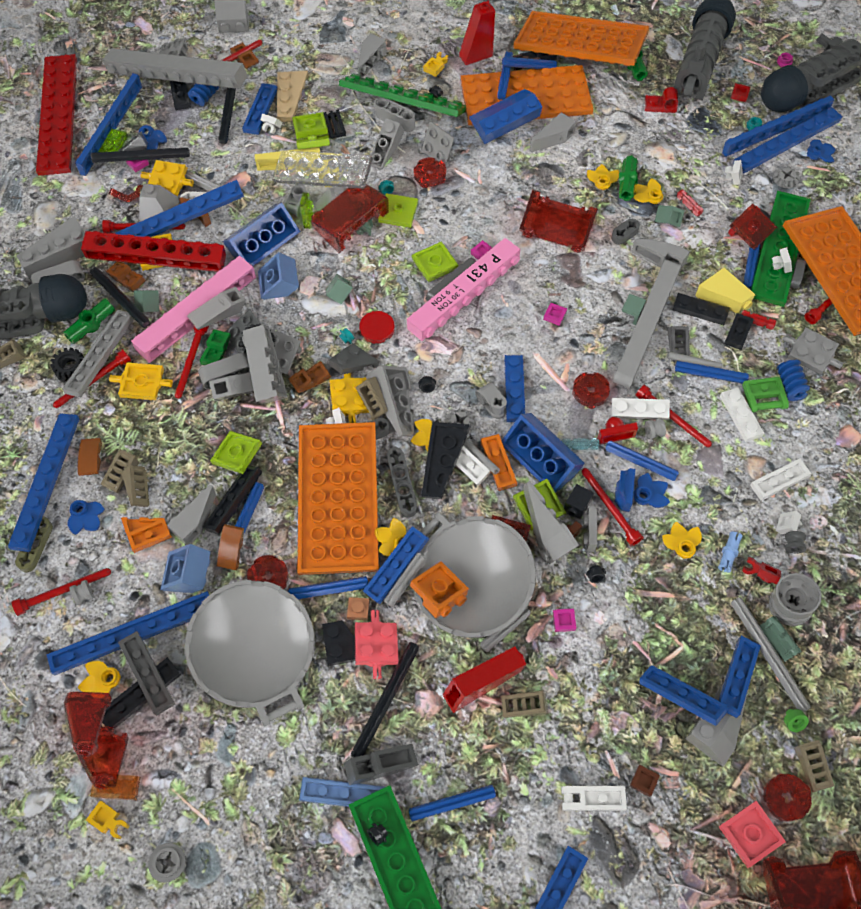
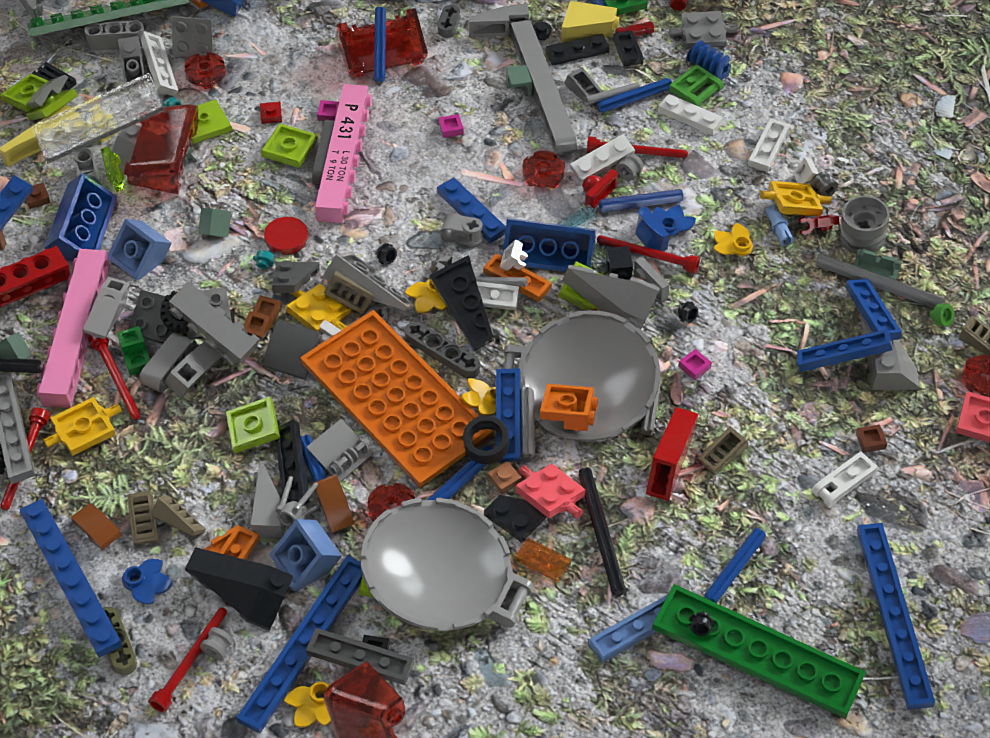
camera: 40 degrees left, 10 degrees down
(127, 567) = (245, 585): none -> black wedge
(196, 535) = (292, 510): none -> light grey plant
(254, 201) = (38, 196): none -> copper plate
(270, 510) = (340, 450): none -> light grey hinge
(304, 411) = (287, 346): none -> dark grey slope
(319, 129) = (52, 87): none -> light grey slope
(328, 691) = (543, 560): none -> clear orange plate
(353, 562) = (482, 423): none -> black tyre
(380, 764) = (646, 580): dark grey slope -> none
(403, 151) = (158, 64): none -> white plate
(445, 229) = (270, 112): none -> red plate
(502, 445) = (513, 256): none -> white tile
(557, 221) = (379, 44): none -> blue axle
(686, 278) = (542, 30): none -> black plate
(760, 539) = (795, 198): none -> yellow plate

